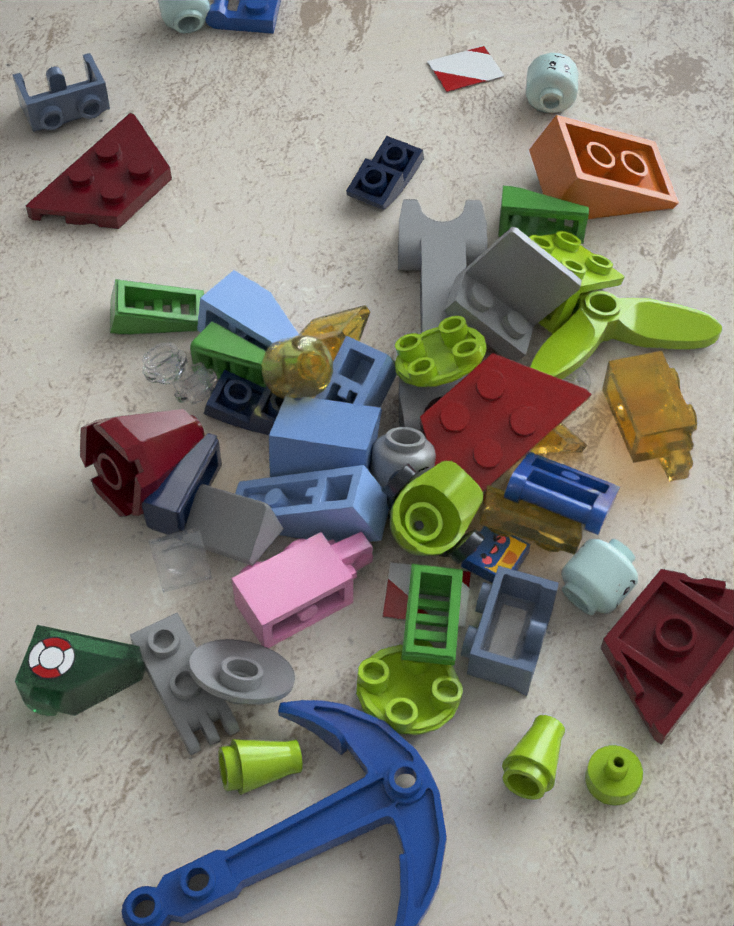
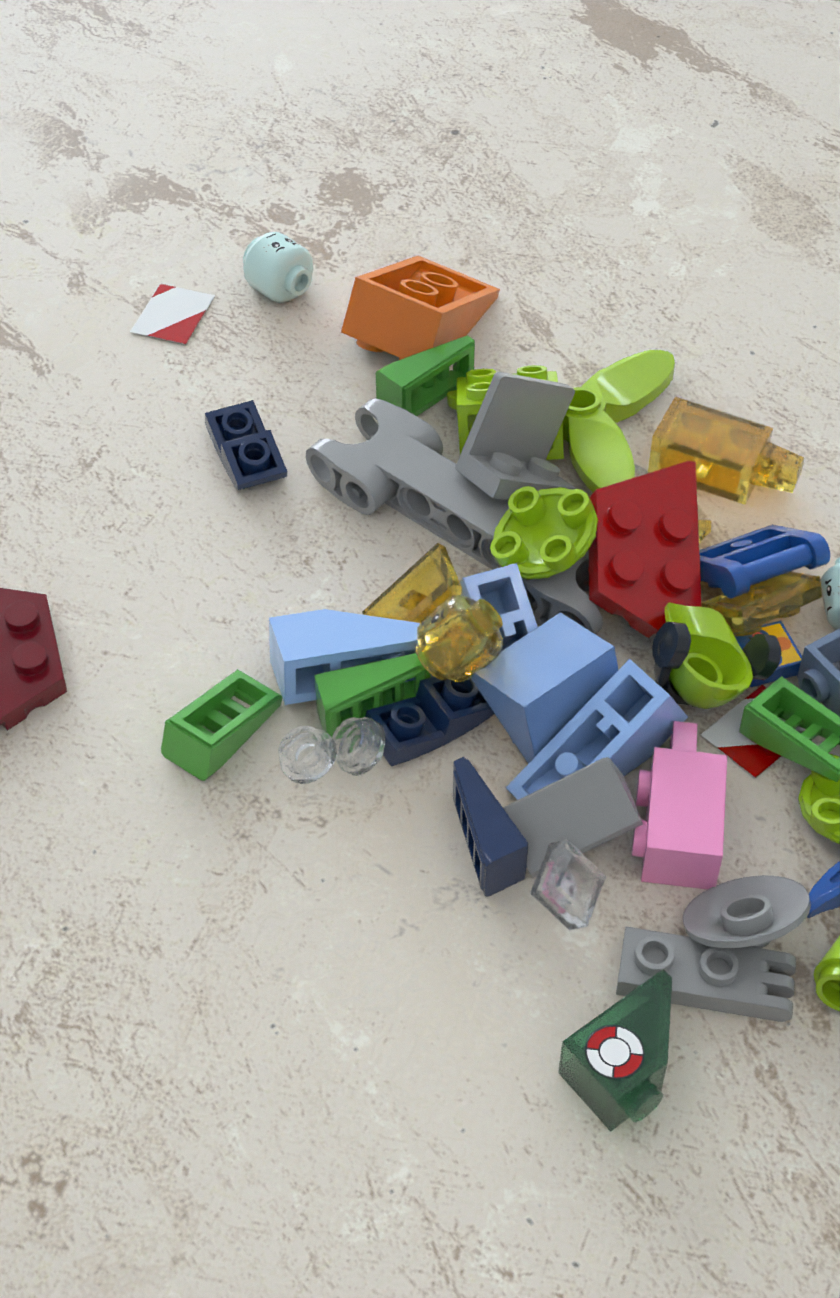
camera: 50 degrees left, 5 degrees down
(136, 454) = (421, 843): dark red cone -> none
(397, 449) = (630, 631): light grey head -> none

